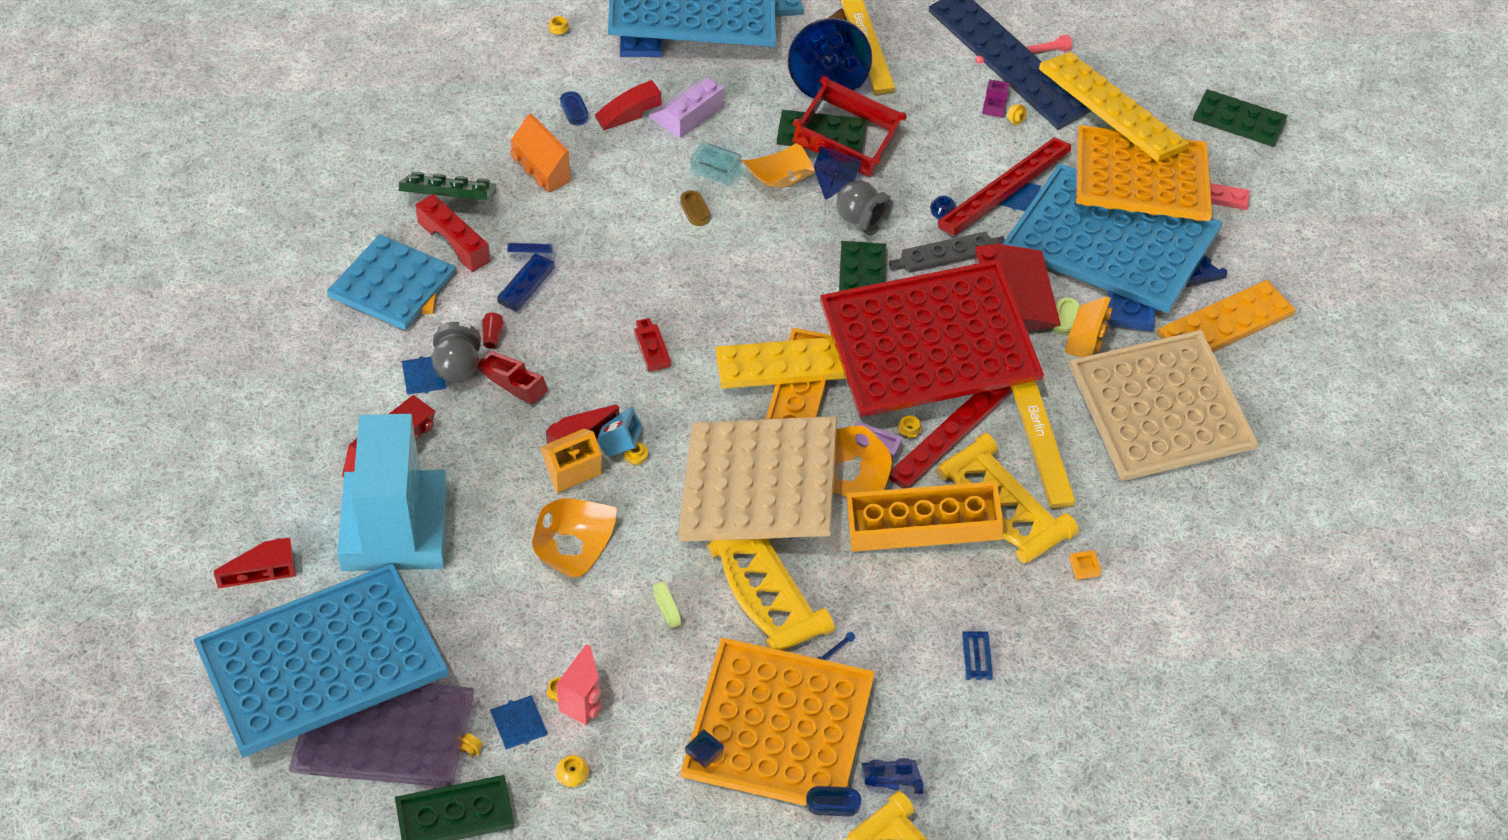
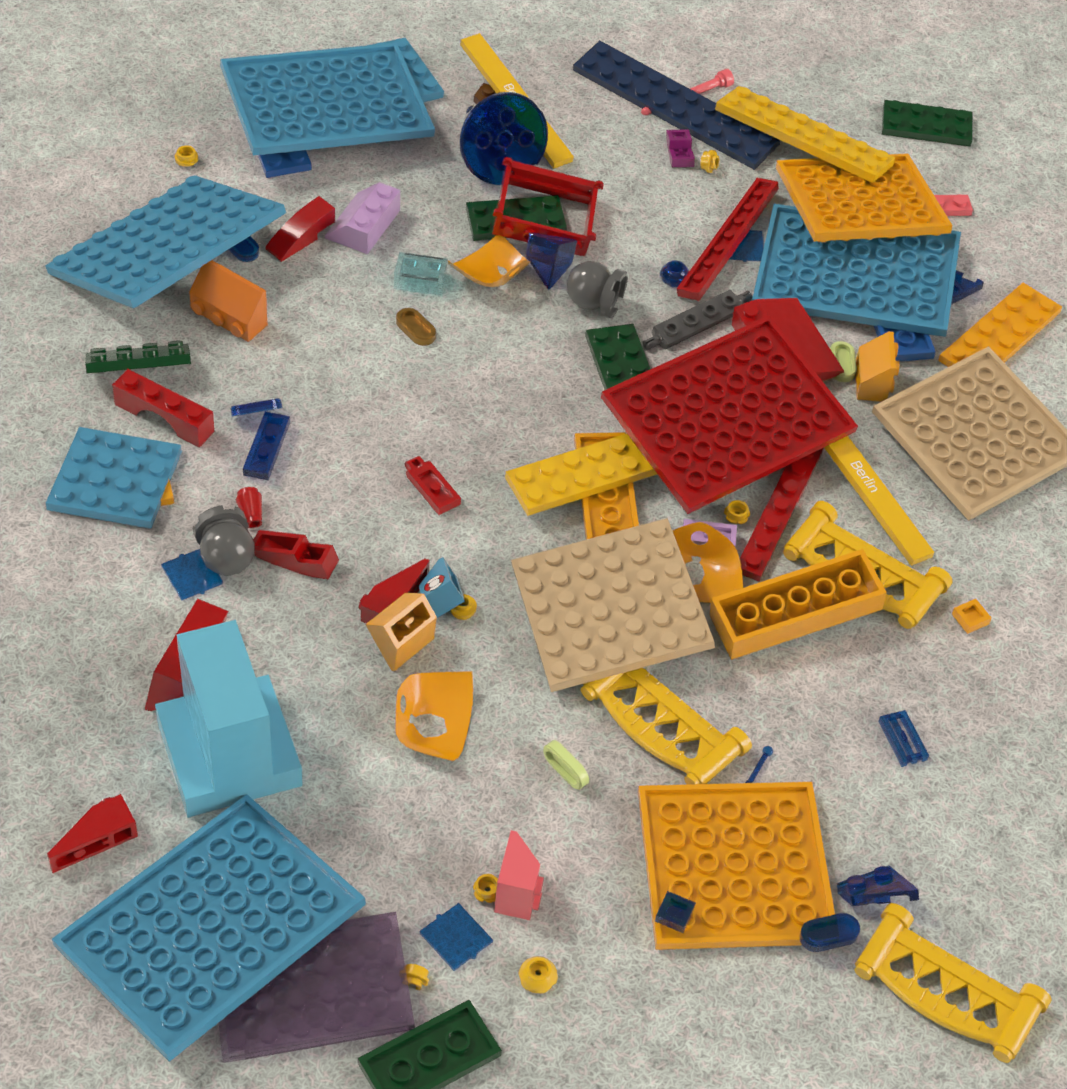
camera: 20 degrees left, 0 degrees up
(507, 92) = (164, 240): none -> dark azure plate

